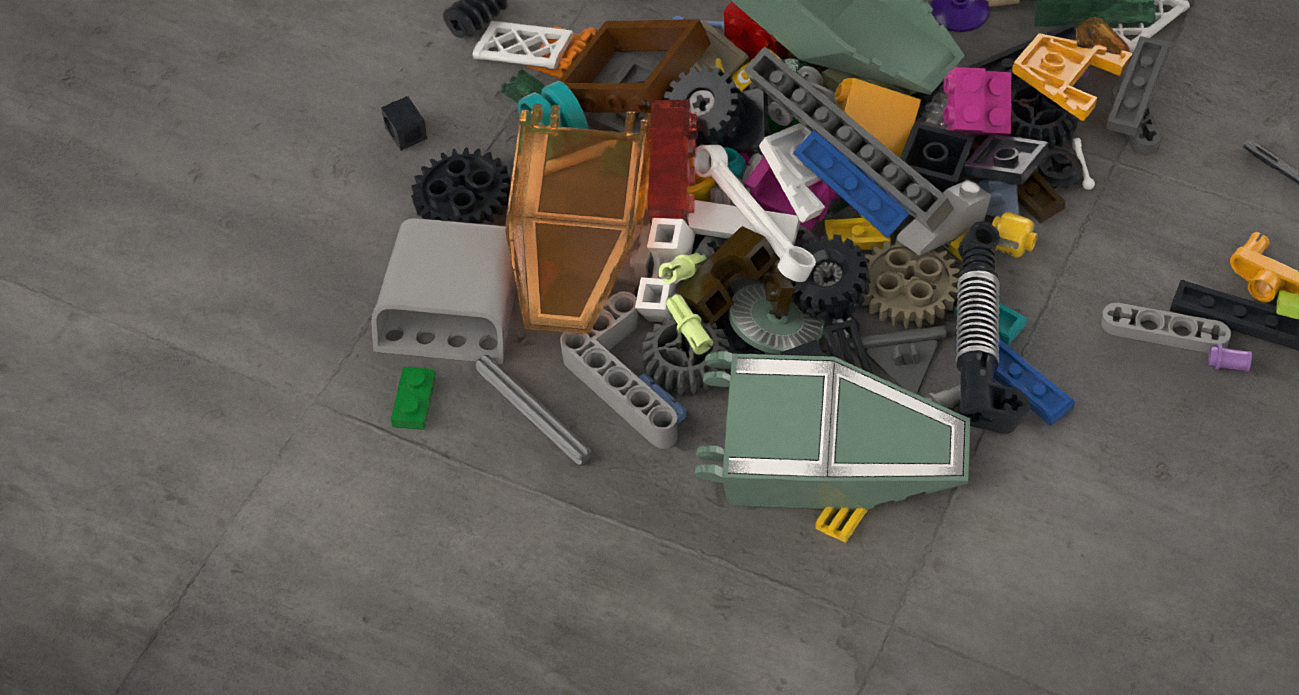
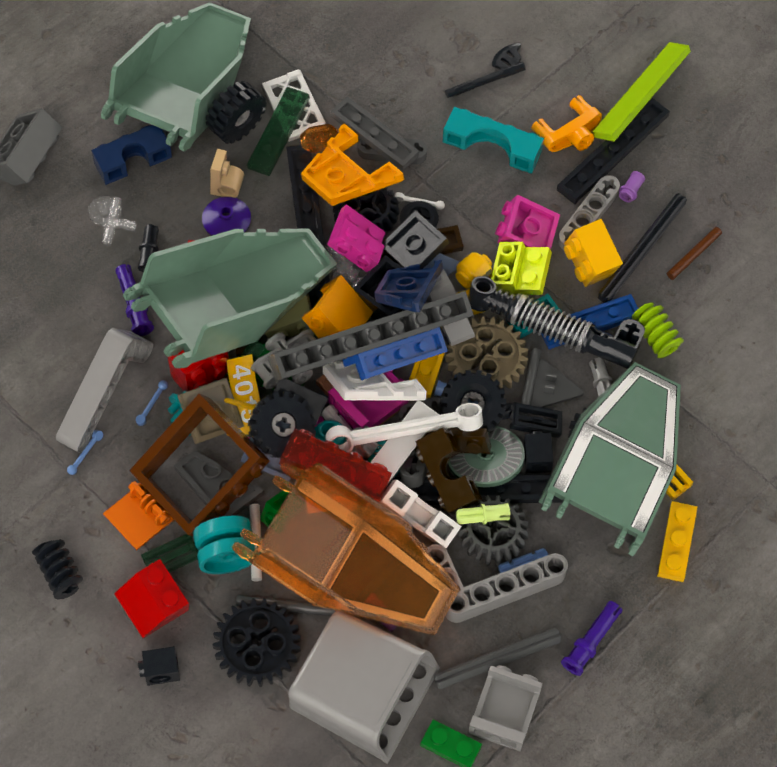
camera: 75 degrees left, 10 degrees up
(472, 433) = (505, 707): none -> light grey panel
(477, 92) = (152, 599): none -> red slope
(515, 31) = (109, 524): white window -> none
(577, 486) = (585, 647): none -> dark purple pin
(681, 267) = (432, 498): yellowish green axle -> none
(759, 544) = (677, 541): none -> yellow plate
(934, 153) = (408, 286): none -> dark blue wing
(1034, 437) = (657, 331): none -> lime piece
(1038, 274) = (521, 268): none -> neon yellow brick
(1095, 330) = (592, 253): none -> yellow brick
(1103, 268) = (527, 223): none -> dark pink plate
(1150, 396) = (642, 248): none -> black axle
(1175, 453) = (694, 253): none -> reddish brown bar
(1205, 172) = (467, 128): none -> teal arch

